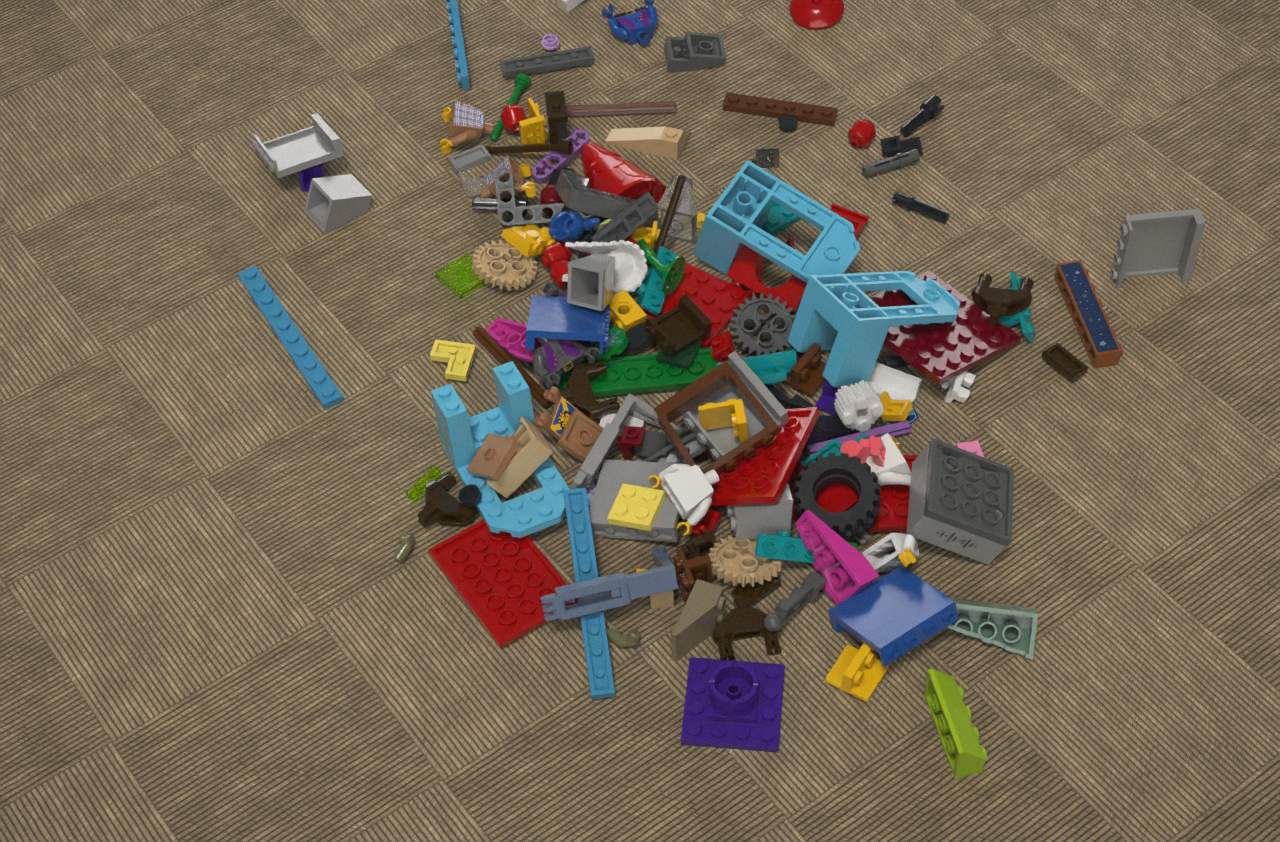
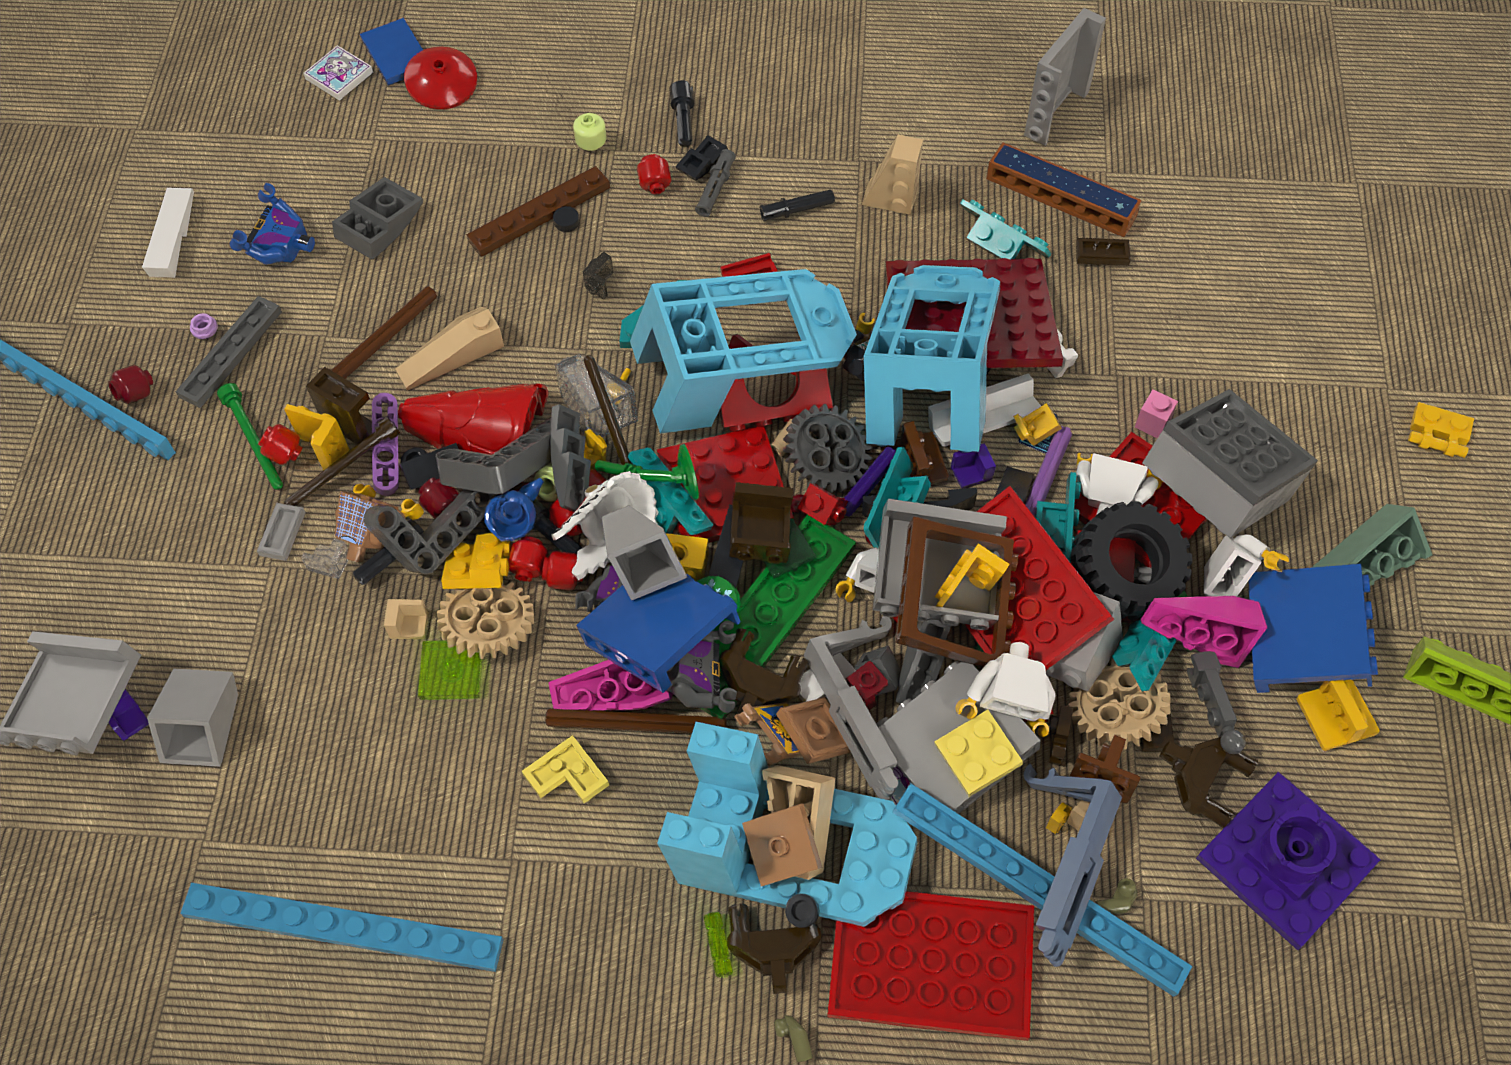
camera: 50 degrees left, 10 degrees up
(465, 125) = (231, 496): medium nougat torso -> none
(470, 236) = (406, 619): none -> tan panel
(485, 43) = (130, 384): none -> dark red head
(698, 618) = (1167, 808): dark tan slope -> none
(855, 88) = (589, 131): none -> yellowish green head
(858, 406) = (1021, 450): white brick -> none
(872, 446) = (1094, 499): coral leg -> none
(987, 229) = (897, 177): none -> tan wedge
(1000, 301) = (995, 239): dark brown connector -> none
(1141, 607) = (1442, 424): none -> yellow plate

